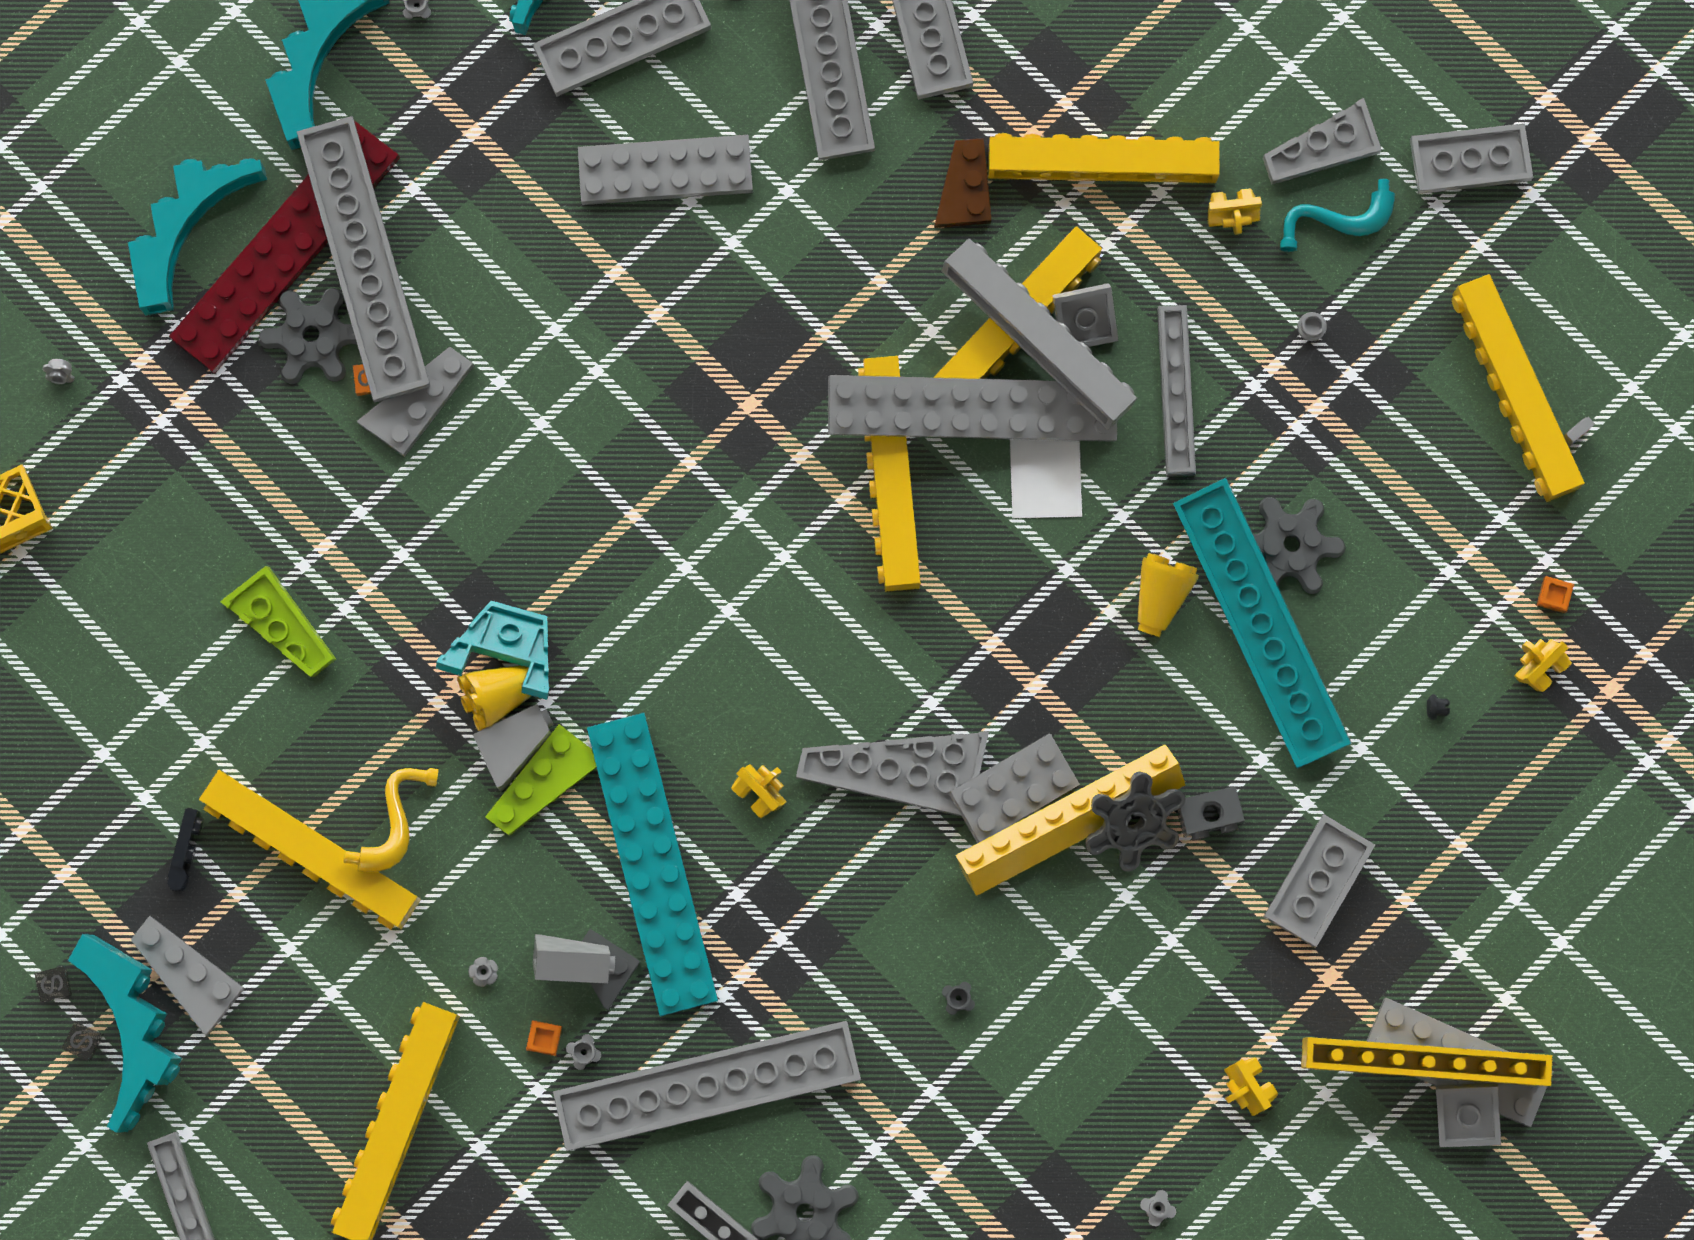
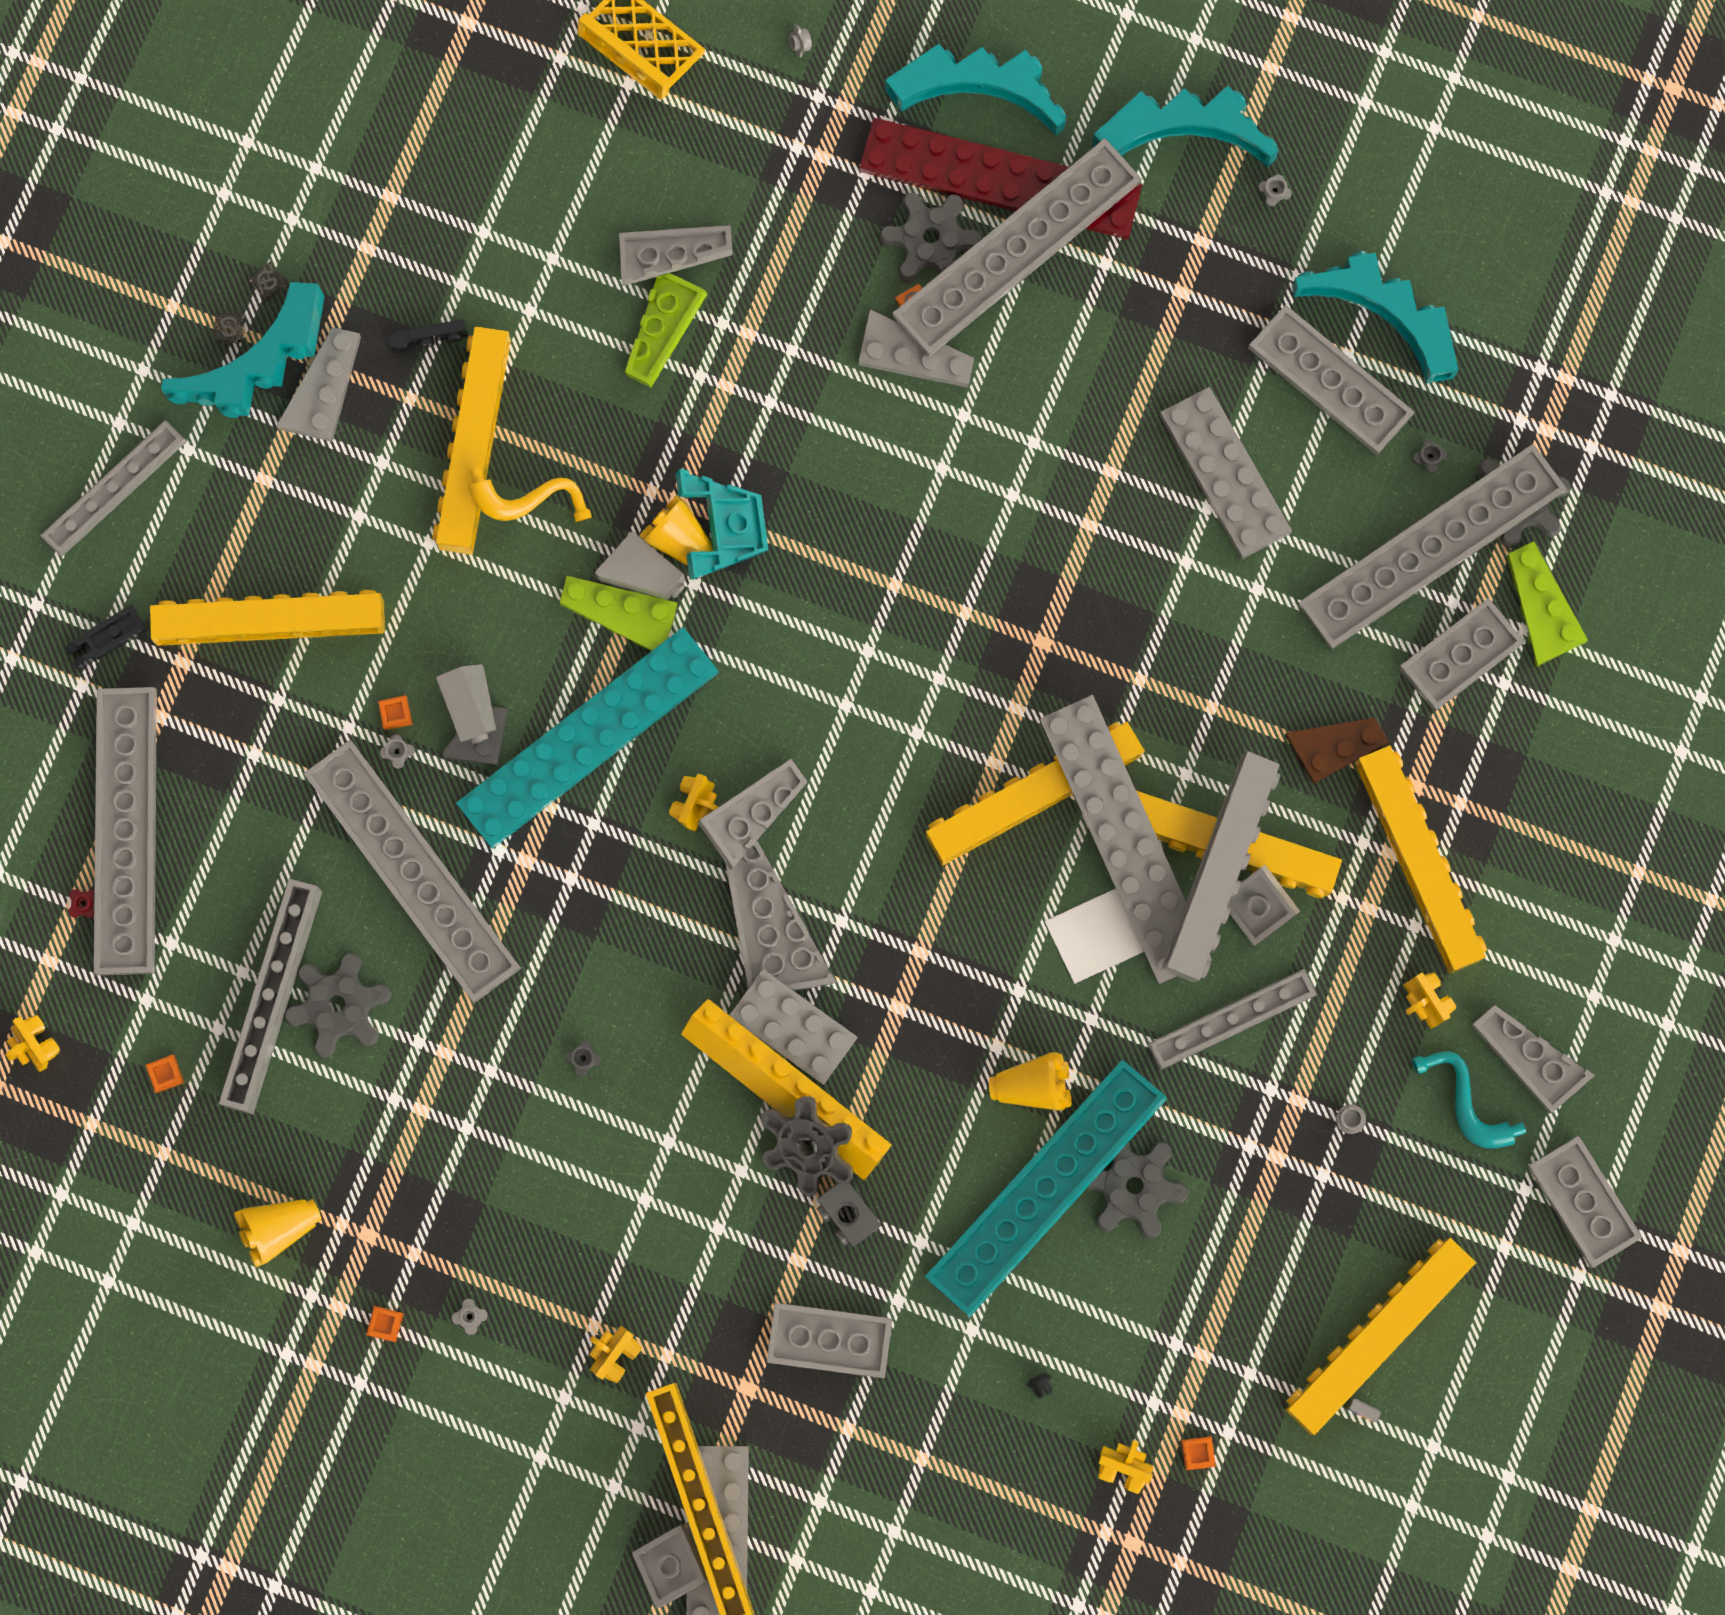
camera: 65 degrees right, 0 degrees up
(208, 587) = (665, 251): none -> light grey wing
(491, 971) = (430, 642): light grey plate -> none
(795, 740) = (745, 817): none -> light grey wing

